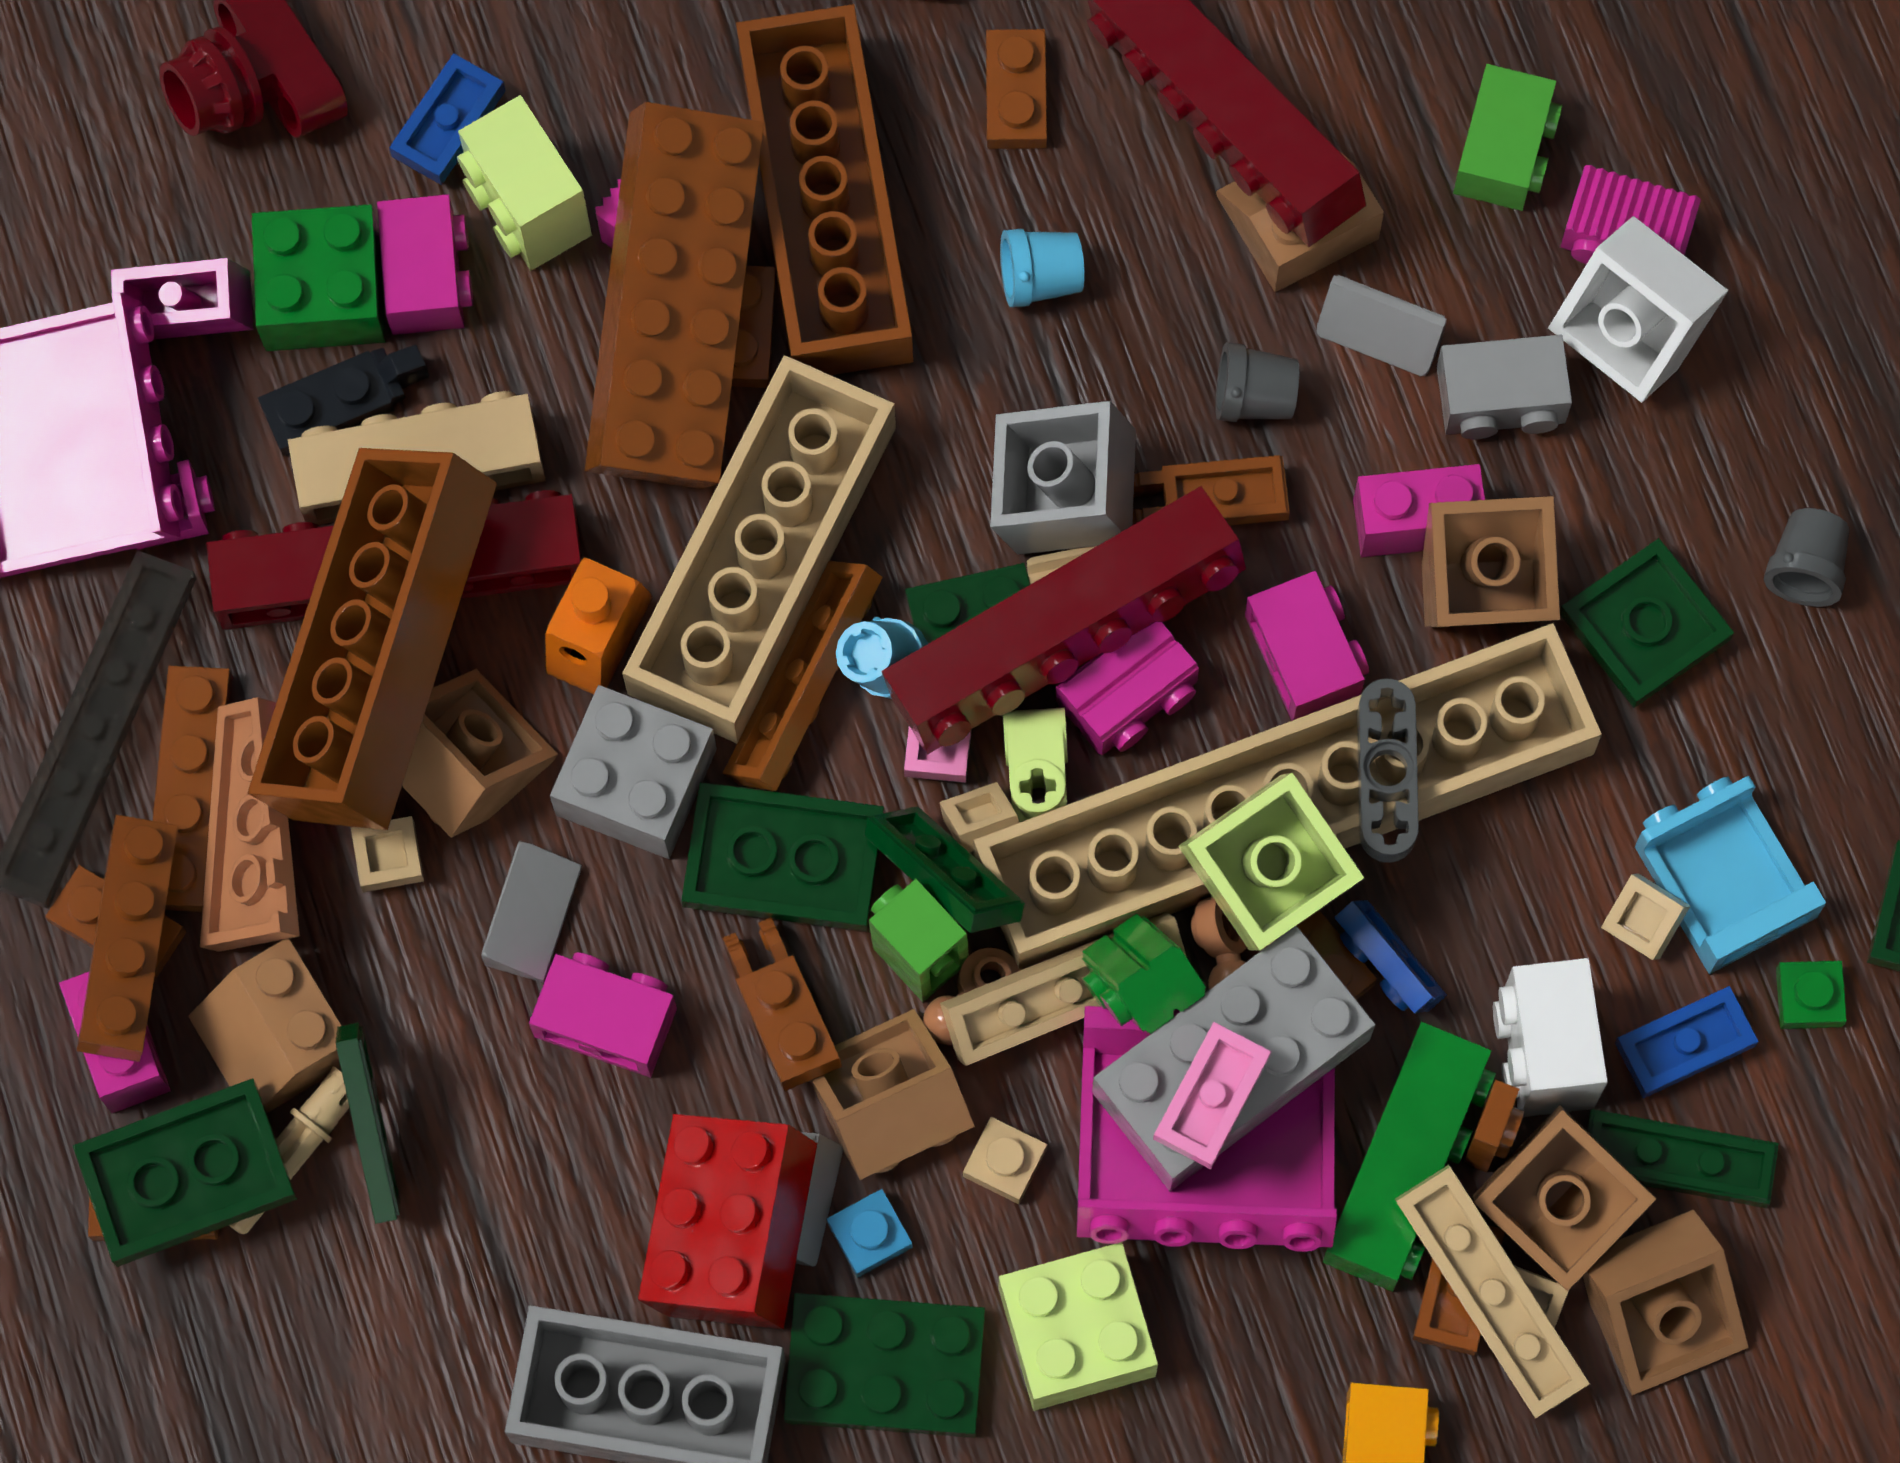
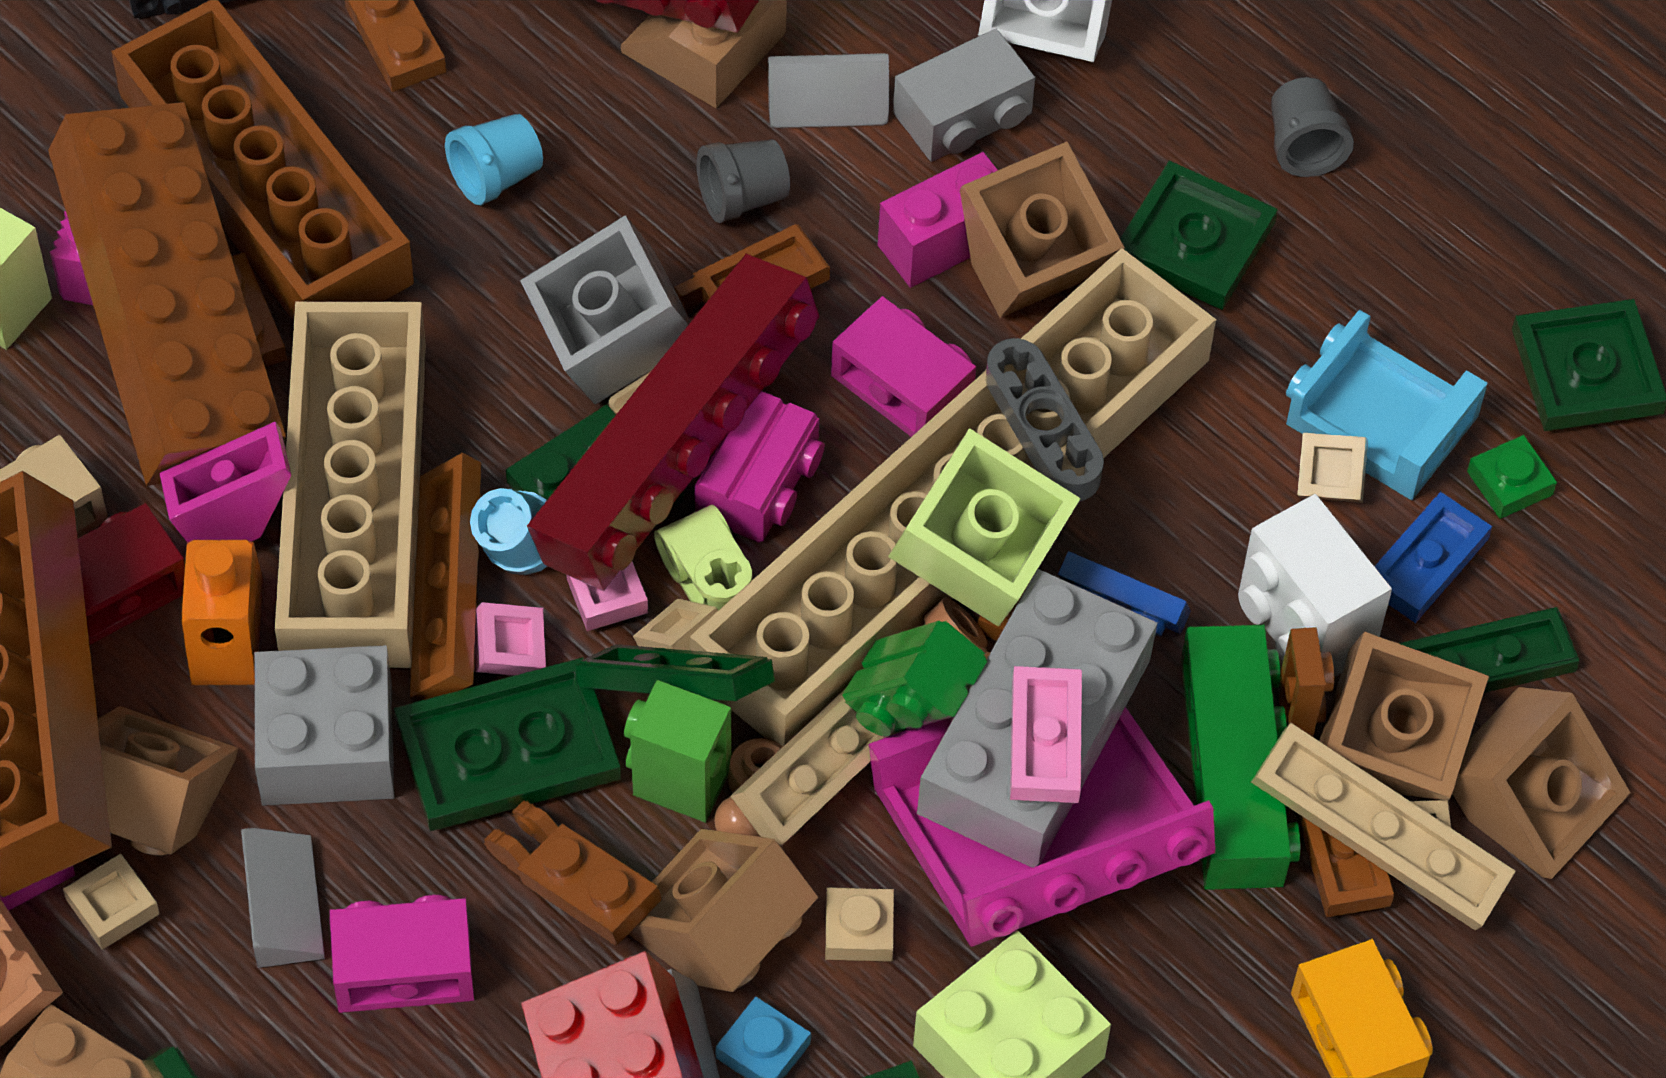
camera: 30 degrees left, 15 degrees down
(644, 514) = (229, 488): none -> dark pink slope
(830, 759) = (509, 639): none -> bright pink plate

